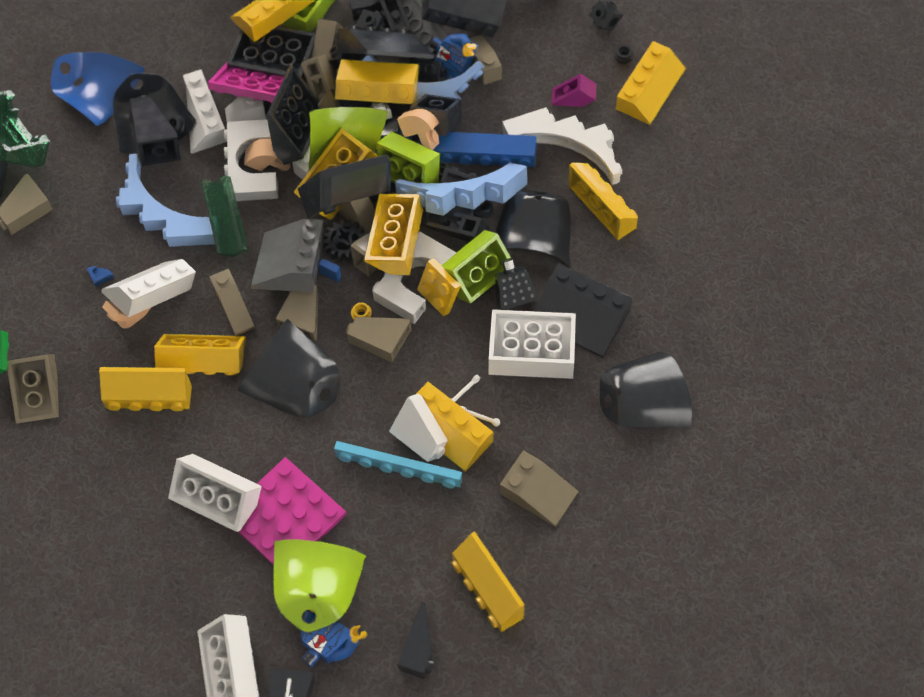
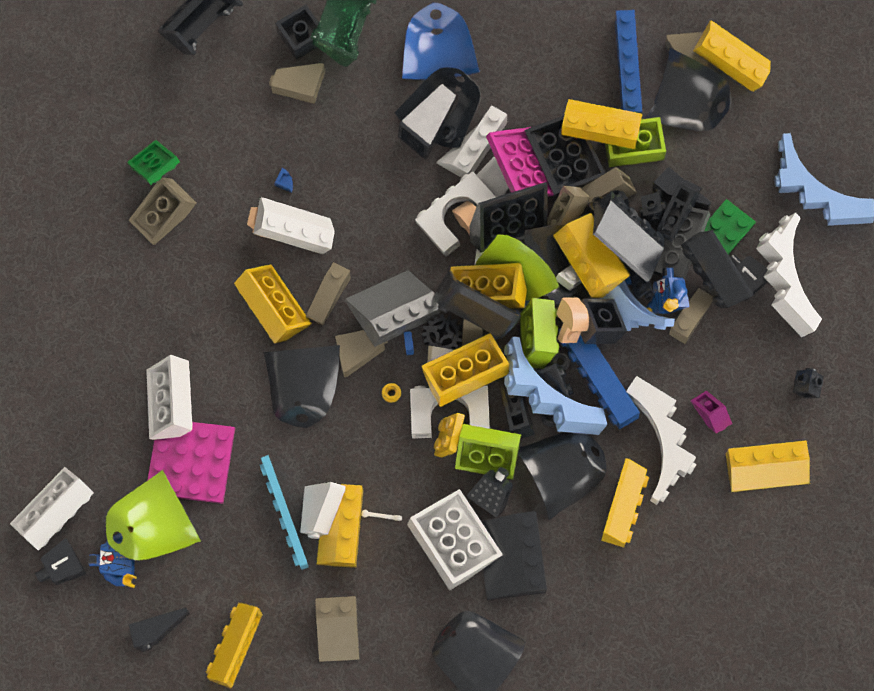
camera: 55 degrees right, 10 degrees up
(145, 388) = (213, 289): yellow slope -> none
(176, 227) = (359, 180): light blue arch -> none
(224, 216) = (392, 232): clear green panel -> none
(379, 335) = (379, 421): dark tan slope -> none
(496, 422) = (372, 558): white hinge -> none
(626, 50) = (787, 420): black plate -> none

